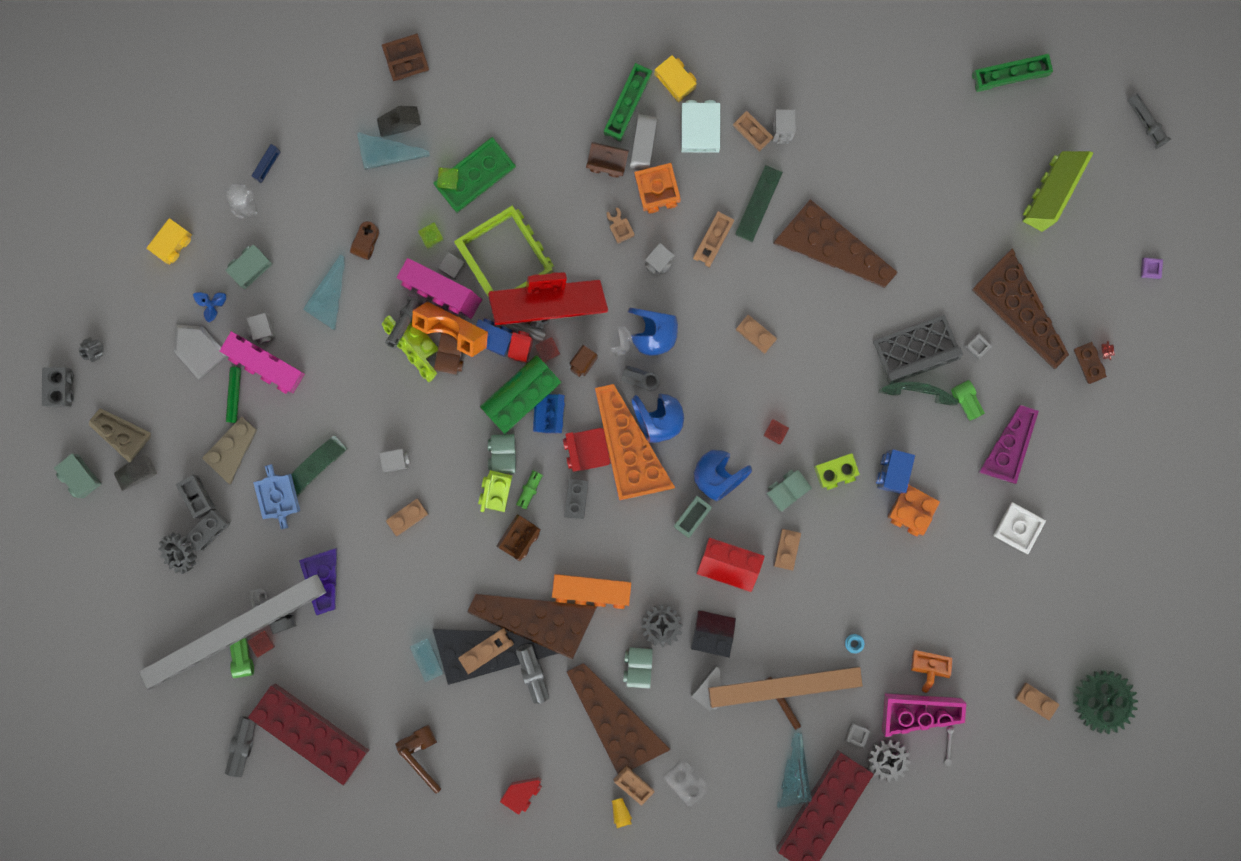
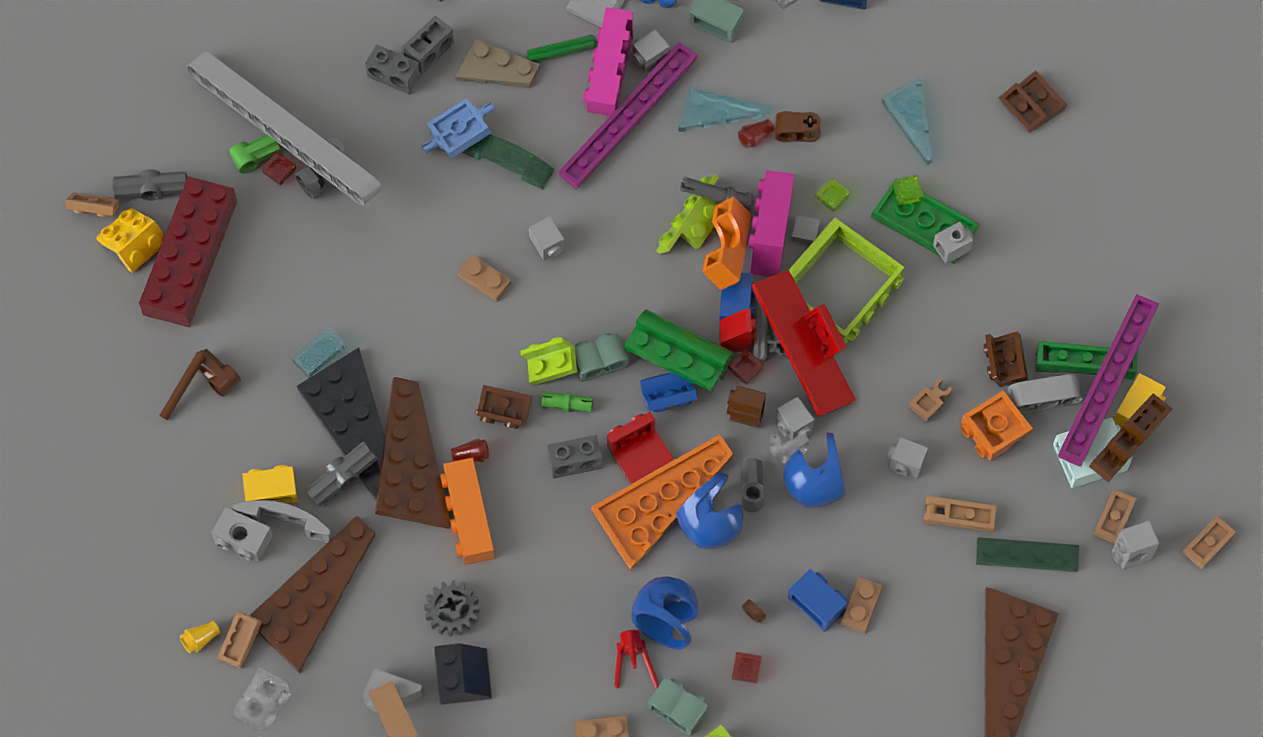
camera: 70 degrees right, 20 degrees down
(177, 553) = (356, 46): dark grey gear -> none
(242, 795) = (85, 203): none -> medium nougat plate
(281, 773) = (132, 238): none -> yellow bracket
(309, 363) = (627, 115): none -> magenta plate
(326, 568) = (386, 207): dark purple wing -> none
(359, 275) = (754, 133): none -> clear red cone
(398, 120) = (954, 117): clear smoke slope -> none
(448, 357) = (690, 258): reddish brown brick -> none
(485, 651) = (351, 411): medium nougat plate -> none
(504, 161) = (953, 242): none -> light grey brick
(519, 793) = (187, 509): red slope -> none
(523, 728) = (271, 485): none -> yellow brick
(545, 572) = (474, 449): none -> clear red cone
(562, 752) = (234, 523): none -> light grey brick
(566, 706) = (256, 509): none -> light grey slope
(602, 330) = (794, 419): none -> light grey brick
(639, 667) = (390, 598): sand green brick -> none
(654, 93) = (1108, 380): none -> magenta plate
(692, 517) = (601, 597): sand green brick -> none
(704, 96) = (1130, 437): none -> reddish brown slope
(730, 564) = (557, 665): red slope -> none
(732, 507) = (631, 645): none -> red plant
(737, 412) = (753, 611): none -> reddish brown tile
(744, 363) = (818, 599): none -> blue brick
(794, 73) = (1209, 542): none -> medium nougat plate

